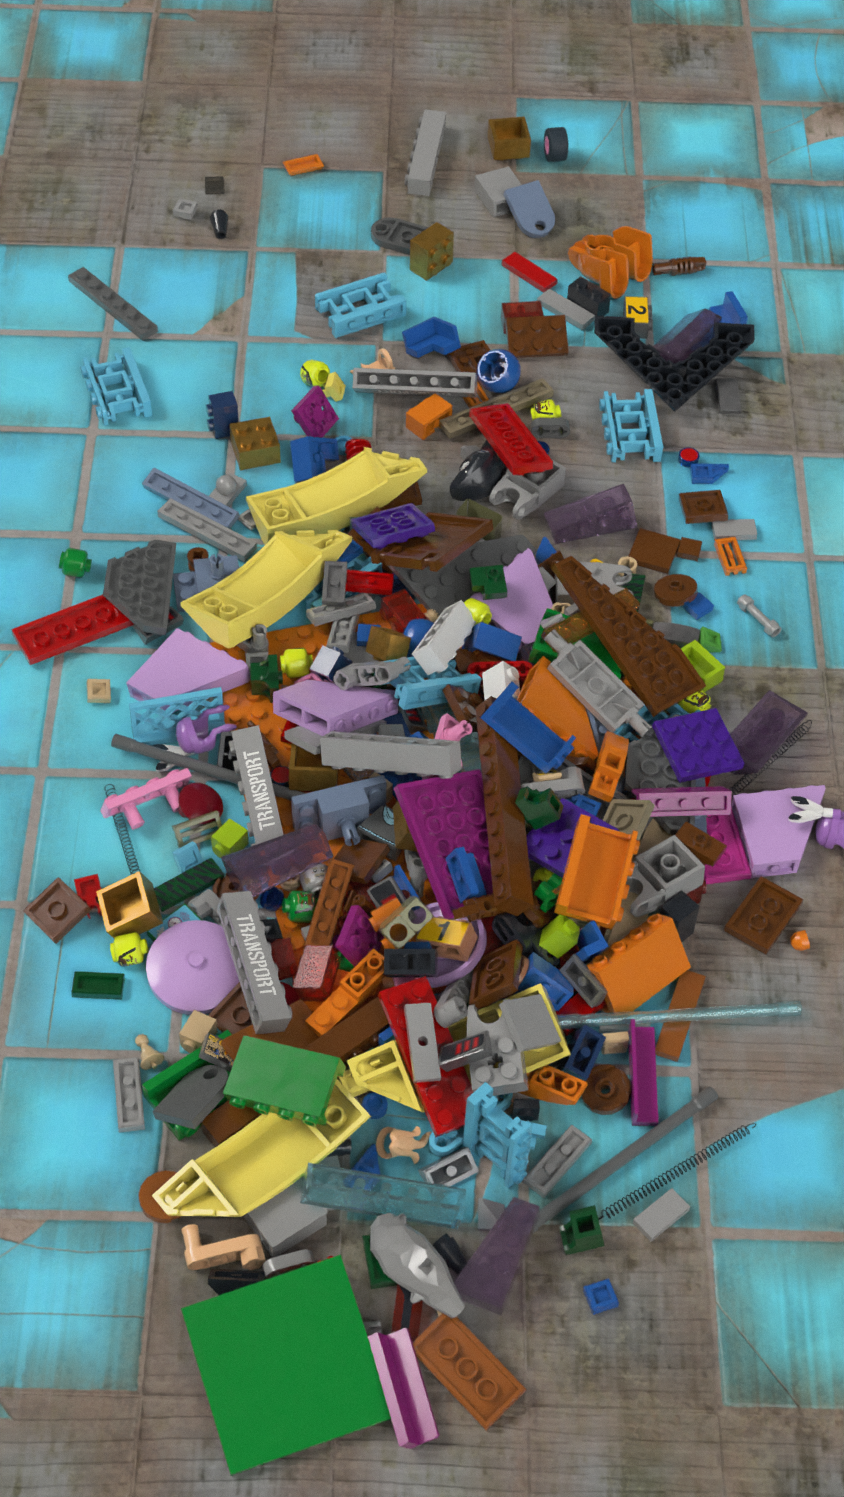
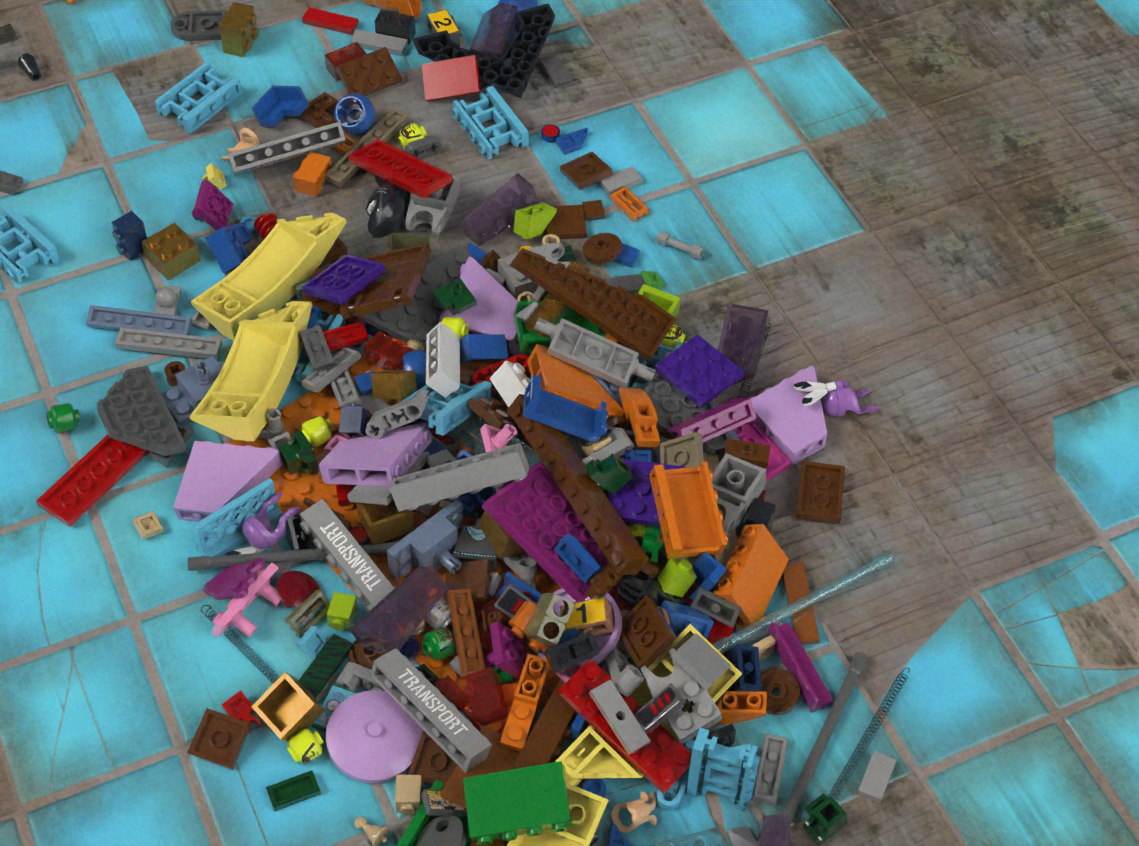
camera: 25 degrees left, 0 degrees up
(145, 770) = (234, 580): none -> magenta tile
(314, 373) = (191, 170): neon yellow head -> none
(450, 1168) = (686, 816): flat silver slope -> none
(614, 367) = (451, 78): none -> tile
(619, 536) = (533, 220): none -> lime slope
(800, 941) = (860, 501): orange hinge -> none

